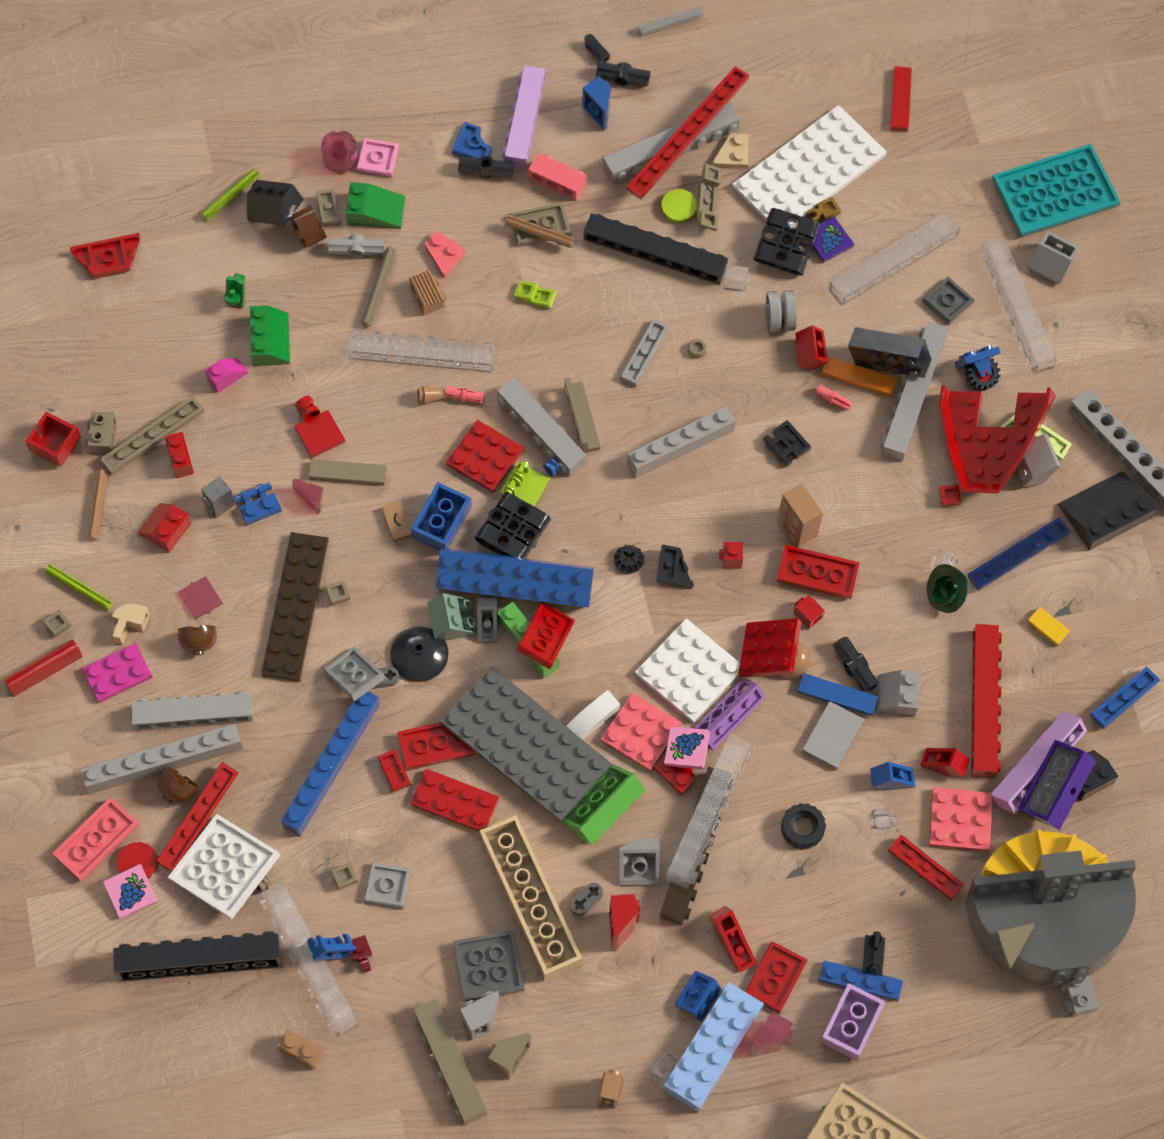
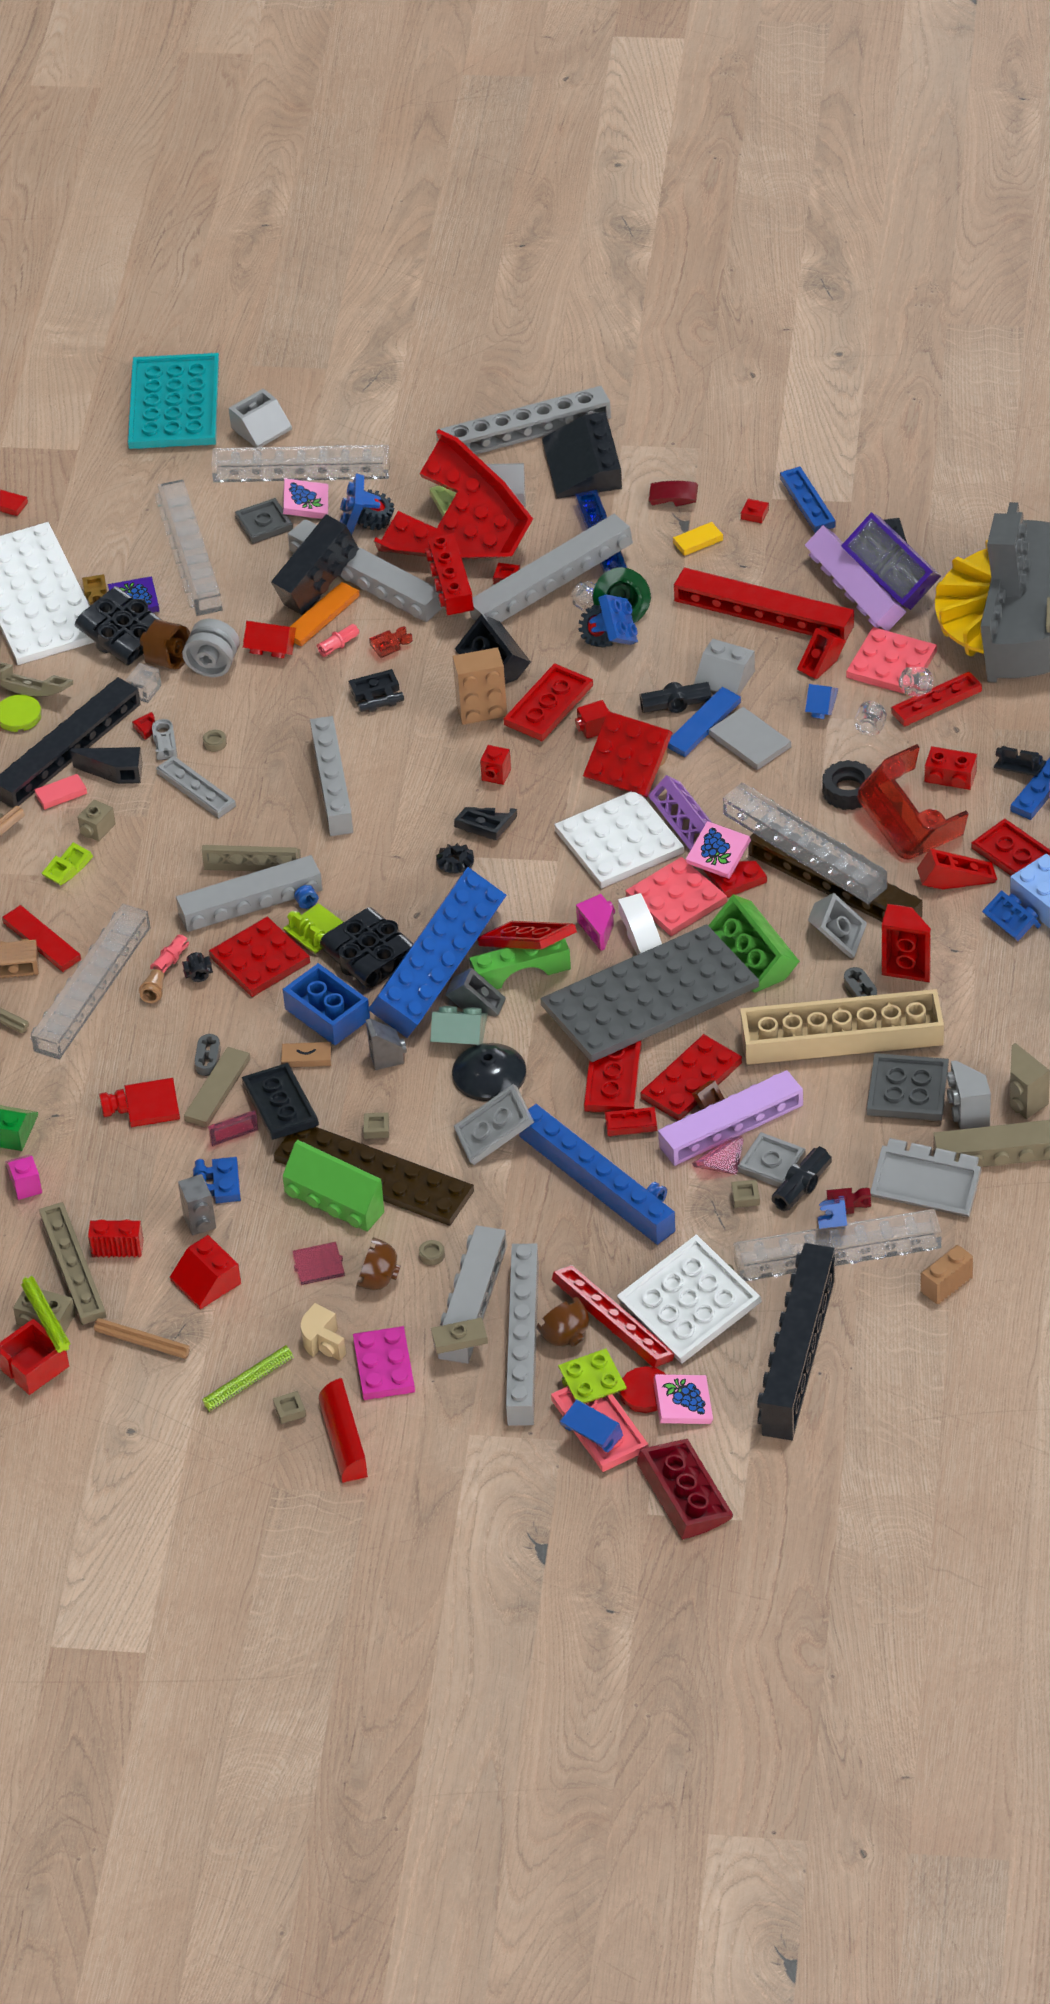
camera: 65 degrees left, 20 degrees down
(50, 917) = (684, 1487): none -> dark red slope
(77, 834) = (592, 1425): none -> blue hinge
(80, 433) = (45, 1314): none -> lime axle
(132, 820) = (592, 1376): none -> lime hinge
(138, 715) = (459, 1335): none -> dark tan plate
(230, 671) = (431, 1252): none -> dark tan tile
(262, 583) = (333, 1186): none -> bright green slope
(324, 810) = (658, 1191): none -> blue bush
(341, 519) = (280, 1101): none -> black tile
(370, 913) = (801, 1178): none -> black piece
(377, 454) = (202, 1054): none -> dark grey beam
(377, 847) = (723, 1157): none -> clear pink slope
(391, 1006) = (926, 1180): none -> light grey hinge
(412, 571) = (384, 1045): none -> flat silver slope
(417, 842) = (730, 1117): none -> lavender brick
(432, 820) = (708, 1095): none -> reddish brown plate
(455, 417) = (197, 967): none -> black gear
(457, 304) = (47, 941): none -> red tile
(581, 297) = (96, 820): none -> dark tan brick
(592, 682) = (596, 919): none -> dark pink slope
(608, 263) = (60, 791): none -> coral tile
(644, 293) = (115, 764): none -> black slope
(684, 315) = (164, 741): none -> light grey piece
(696, 296) = (144, 725): none -> red tile
(755, 888) = (897, 817): none -> clear red windscreen
(775, 276) = (164, 644): none -> reddish brown brick
(843, 433) = (388, 643): none -> clear red plate
(847, 901) = (950, 768): none -> red brick
(856, 513) = (489, 634): none -> black slope
(912, 590) = (609, 623): none -> blue plate
(916, 452) = (450, 574): none -> red brick
(932, 845) = (916, 681): none -> clear head
(958, 527) = (553, 569): none -> light grey brick
(980, 321) = (305, 498): none -> bright pink tile
(1091, 590) = (673, 491): none -> dark red slope
(1098, 660) = (754, 511): none -> red plate

